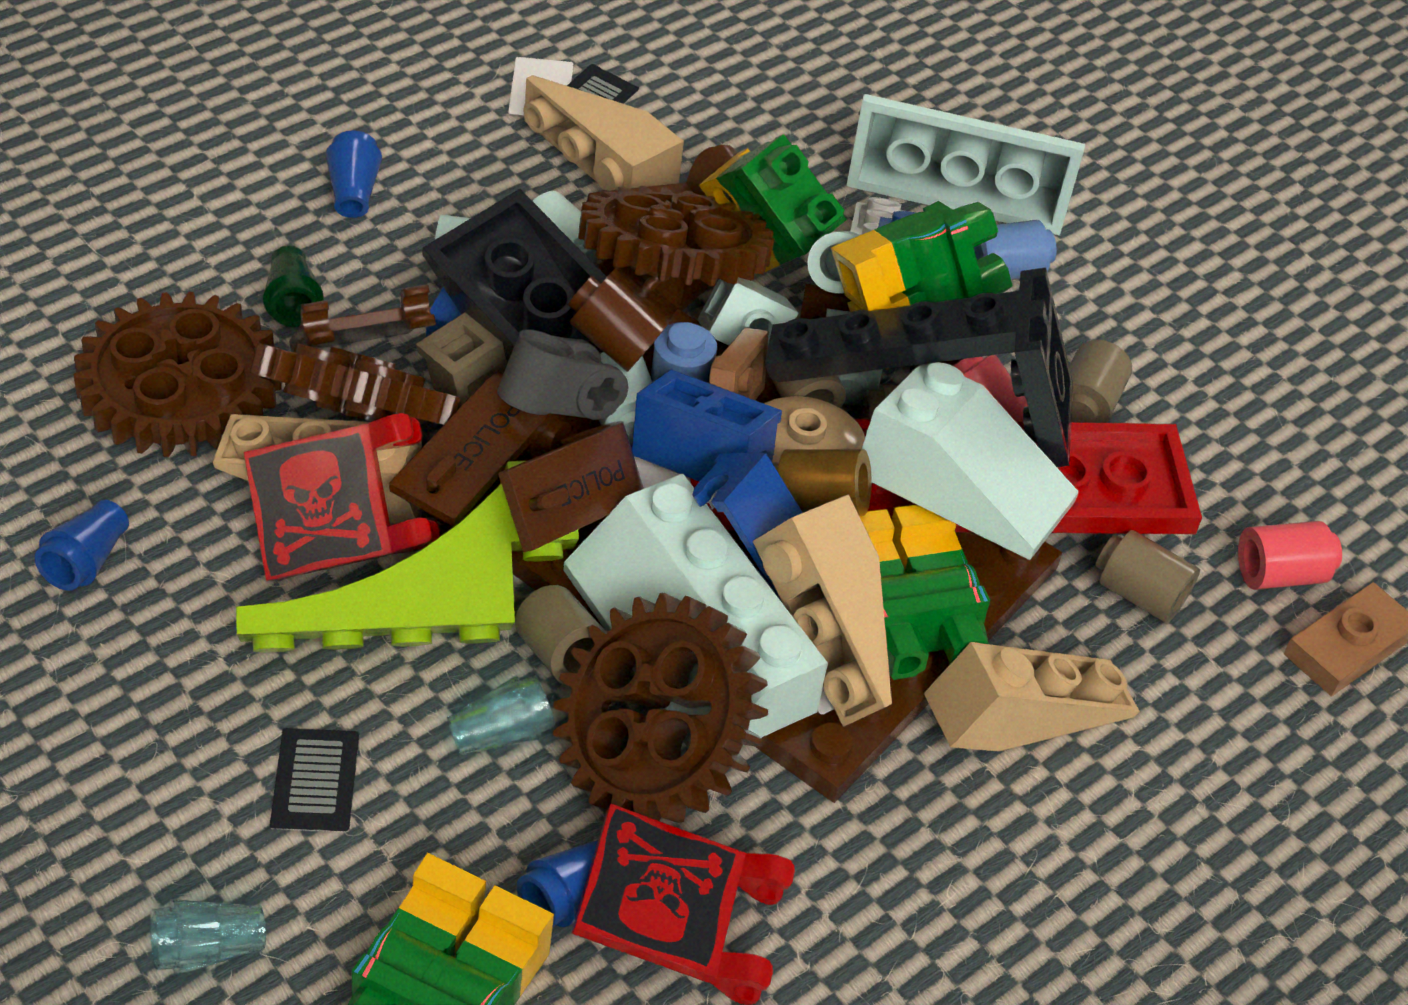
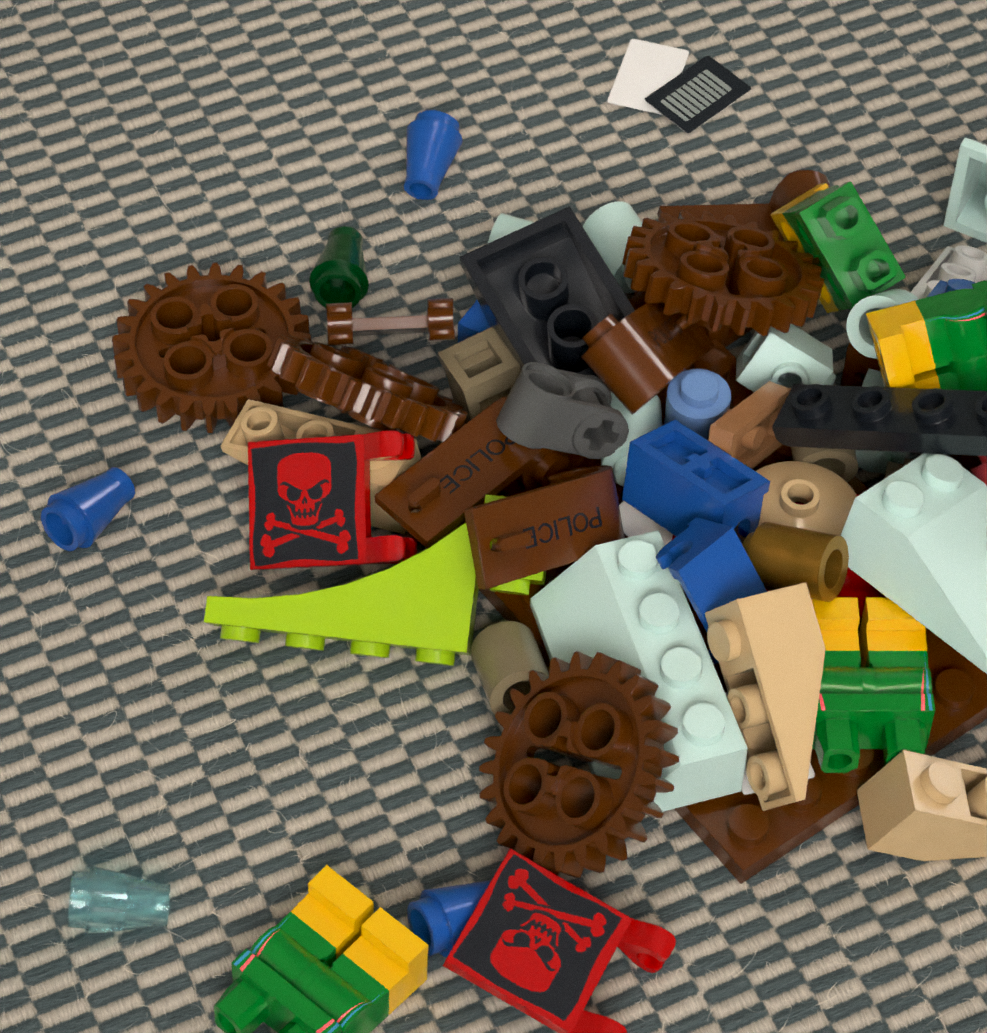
camera: 20 degrees right, 5 degrees up
(315, 780) = (251, 772): black sticker -> none
(503, 717) = (436, 743): clear light blue cone -> none
(602, 136) = (697, 147): tan slope -> none

